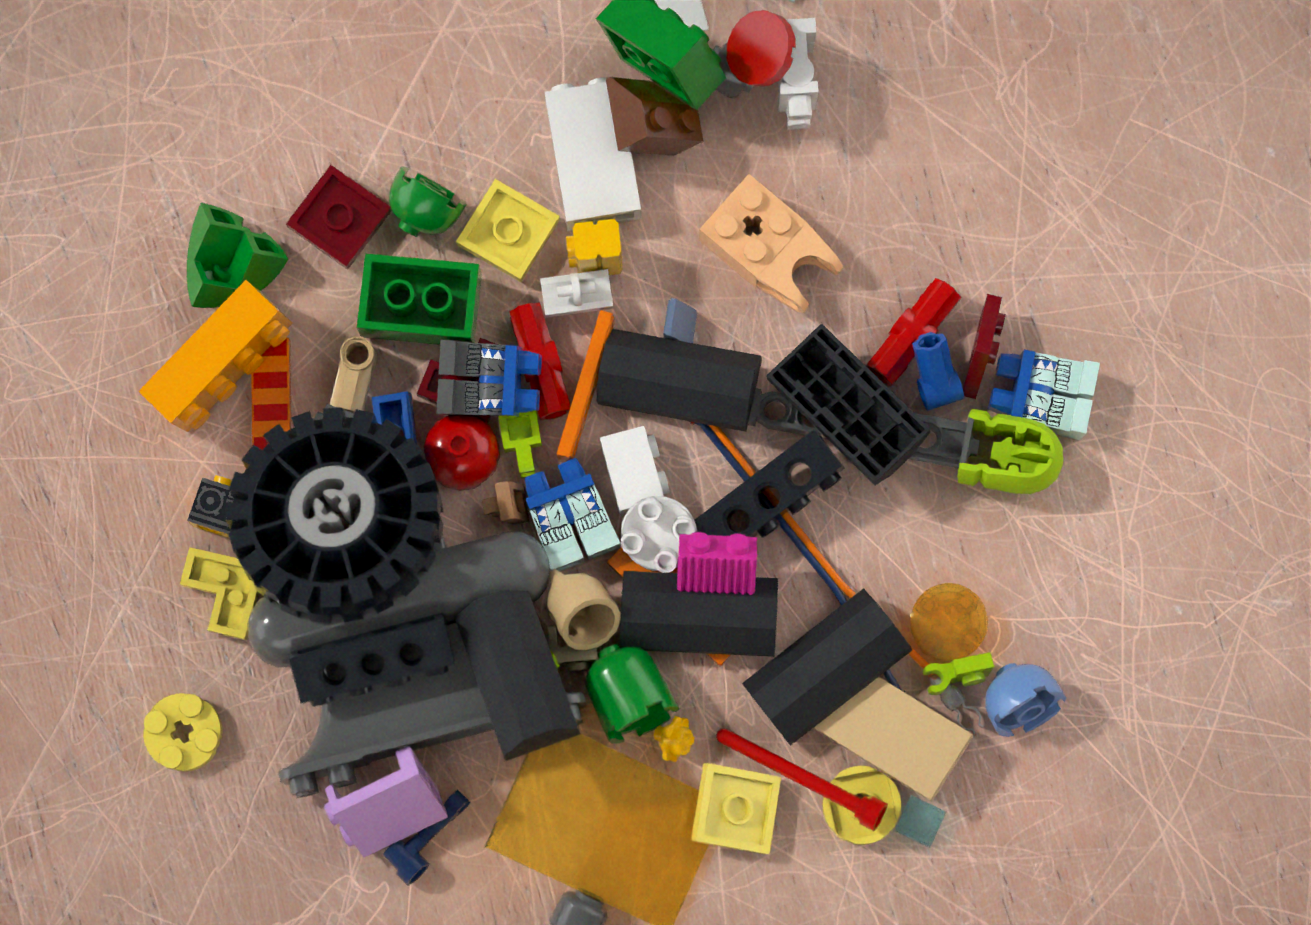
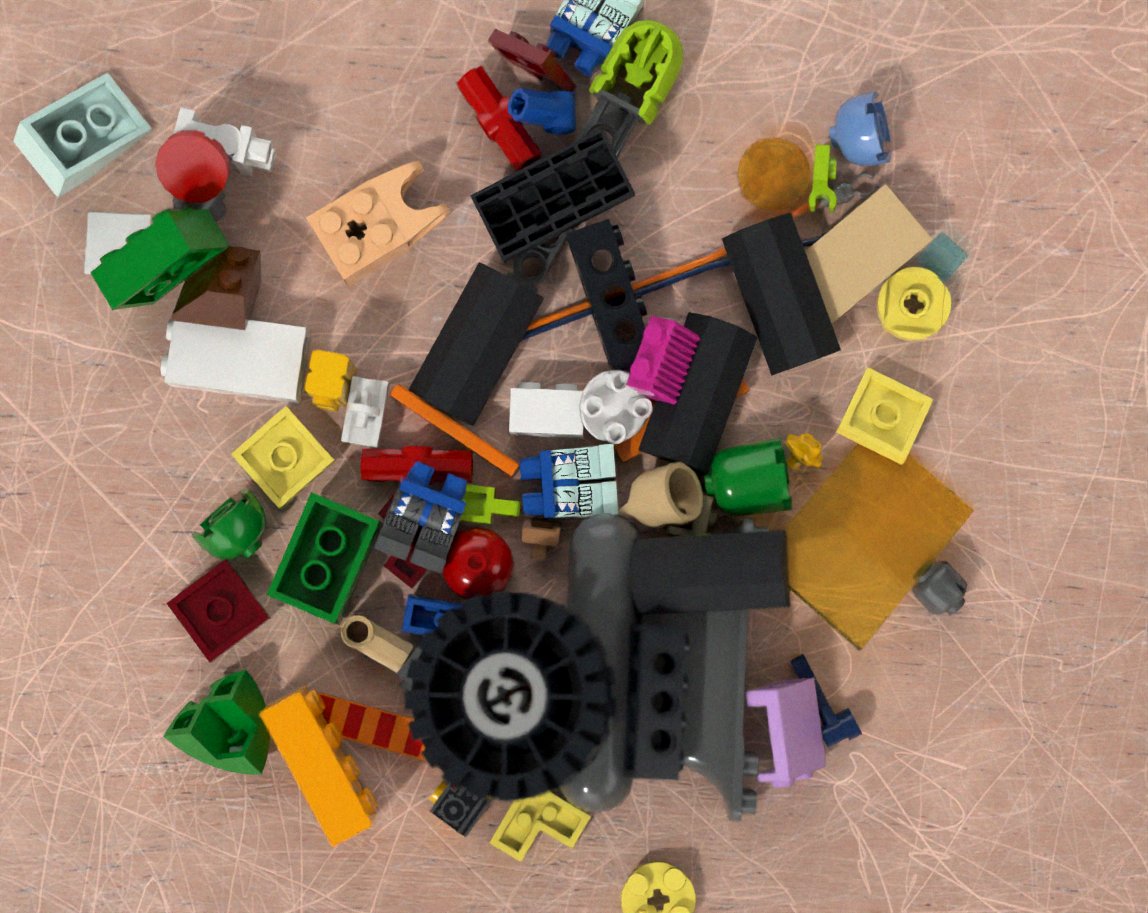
camera: 70 degrees left, 5 degrees up
(680, 321) = (421, 327): sand blue slope -> none
(867, 810) = (923, 299): red piece -> none

